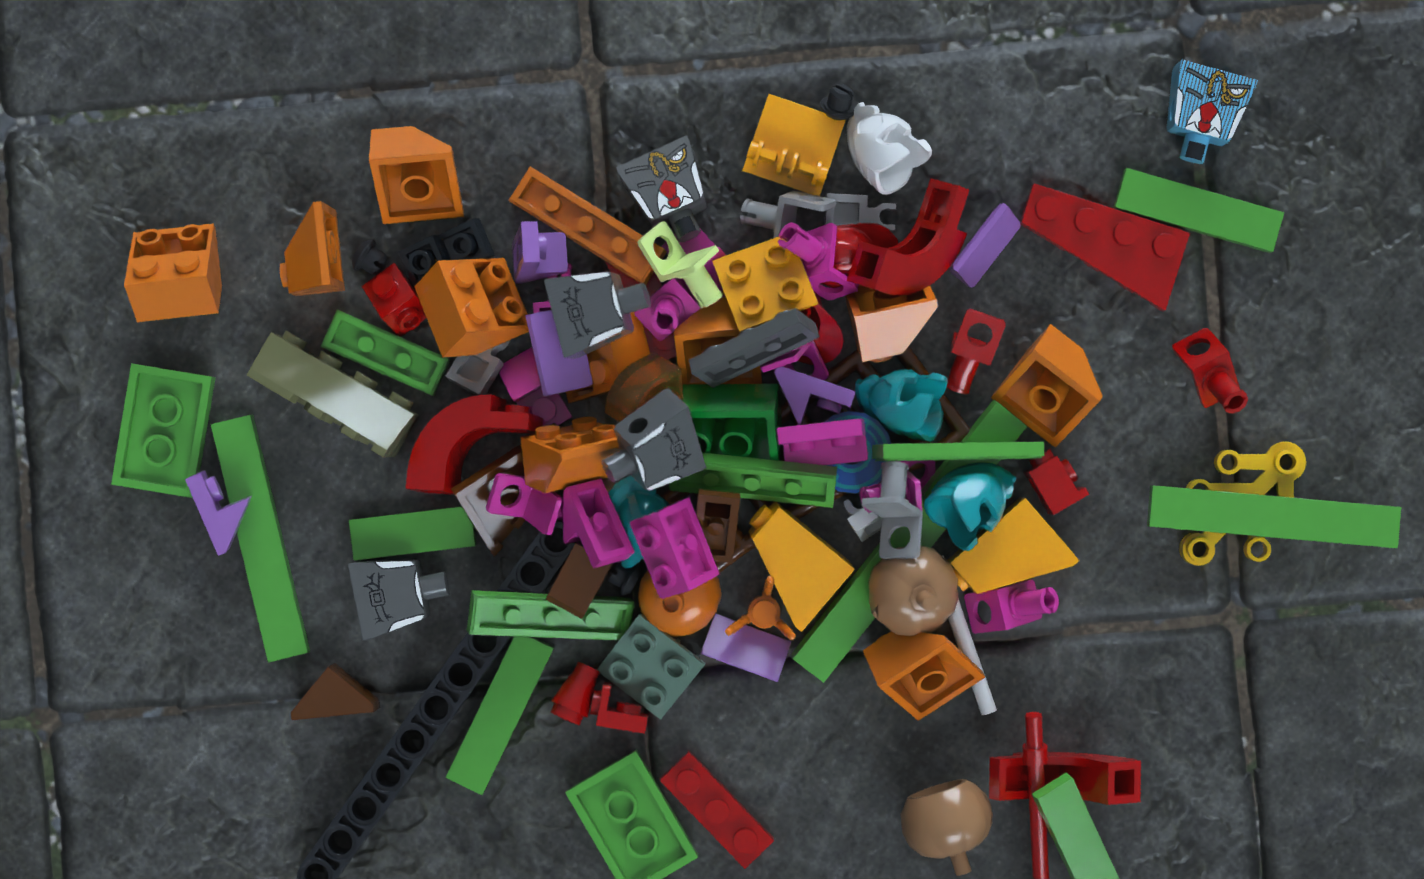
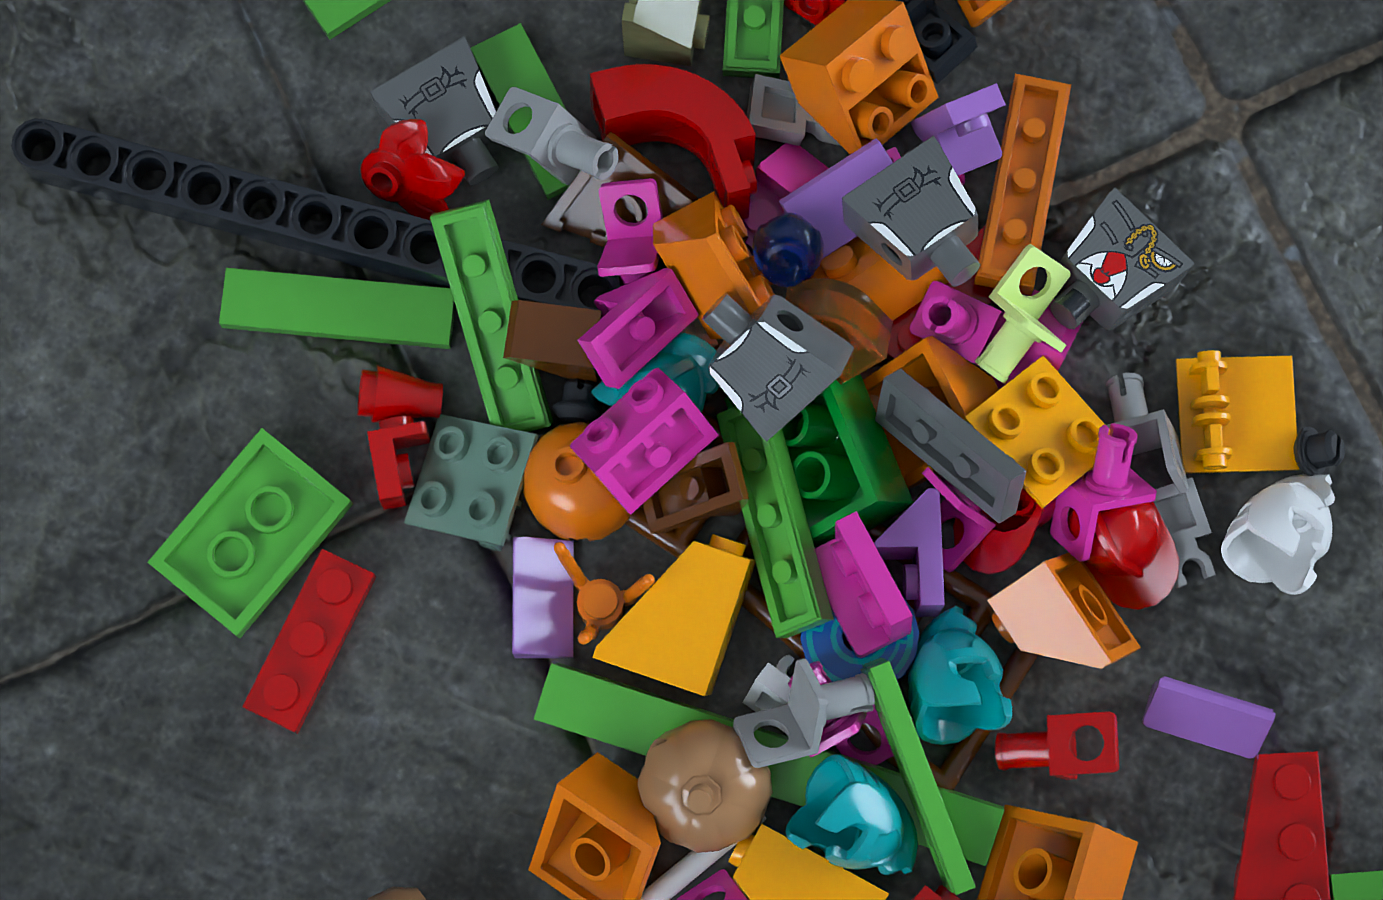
camera: 70 degrees right, 10 degrees down
(335, 695) = (286, 84): reddish brown slope -> none
(425, 637) = (408, 175): none -> red plate
(443, 530) = (553, 138): none -> light grey bracket
(581, 404) = (787, 249): none -> clear blue animal
(923, 253) = (1161, 633): red arch -> none

